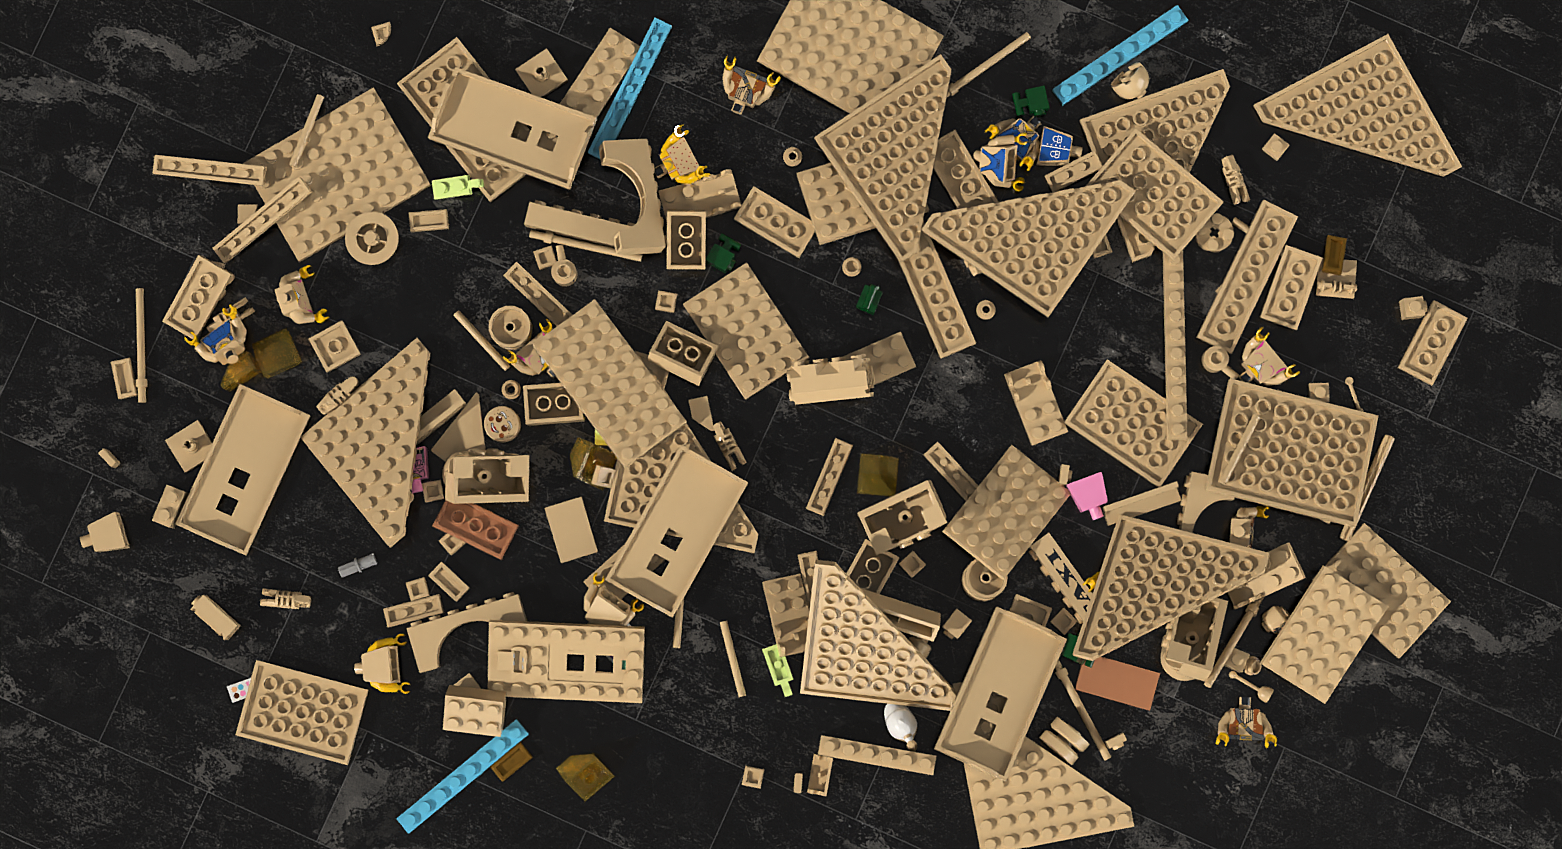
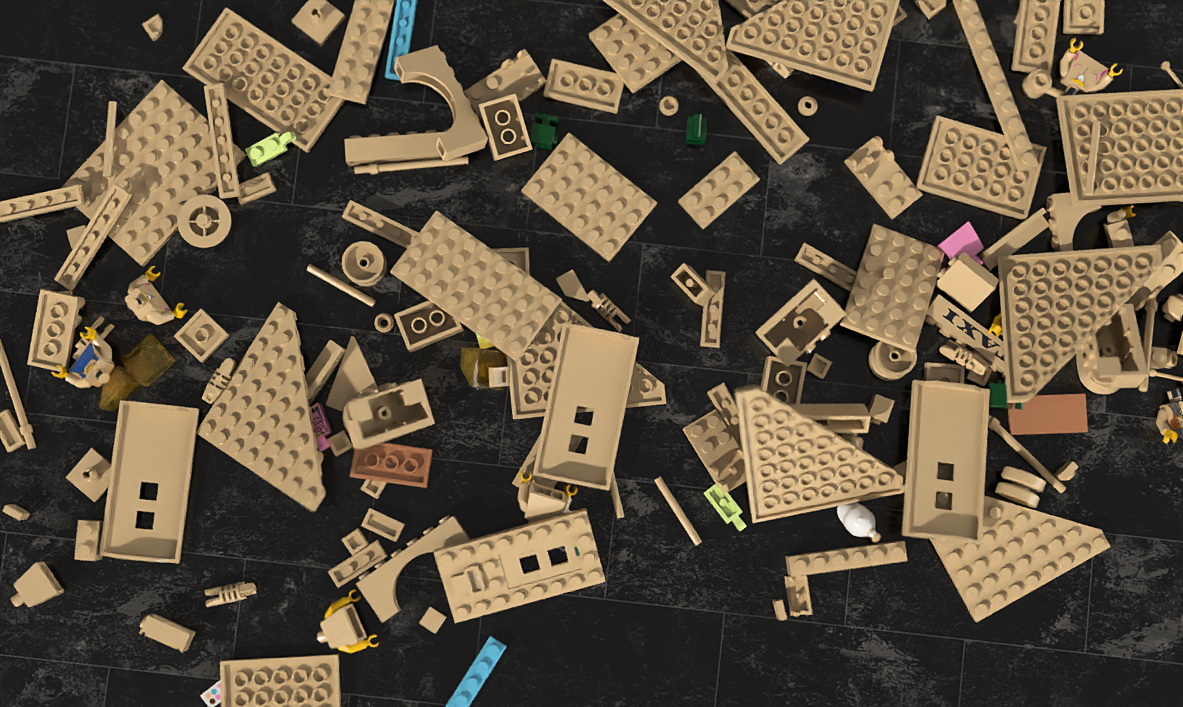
camera: 25 degrees left, 0 degrees up
(357, 565) = (290, 537): light grey axle -> none
(412, 166) = (222, 141): none -> tan plate
(474, 710) = (447, 642): tan brick -> none
(481, 117) = (273, 69): tan piece -> none
(502, 424) = (386, 358): tan head -> none
(511, 761) = (498, 678): pearl gold tile -> none
(528, 359) = (392, 288): tan torso -> none
(545, 257) = (377, 188): tan tile -> none
(563, 270) = (397, 193): tan piece -> none
(571, 530) = (484, 437): tan tile -> none
(585, 774) = (573, 668): clear yellow slope -> none
(666, 301) = (504, 193): tan tile -> none
(679, 160) = (474, 56): torso -> none
(682, 353) = (536, 235): tan brick -> none
(753, 777) = (734, 617): tan tile -> none
(796, 161) = (579, 26): tan plate -> none
(816, 448) = (693, 284): none -> tan brick
(830, 380) = (686, 215): tan brick -> none
(877, 475) = (757, 292): clear yellow slope -> none
(1053, 600) = (964, 357): none -> tan hinge
(1064, 475) = (933, 235): tan plate -> none
(1079, 528) = (966, 281): none -> tan brick
(1319, 391) = (1141, 83): tan plate -> none

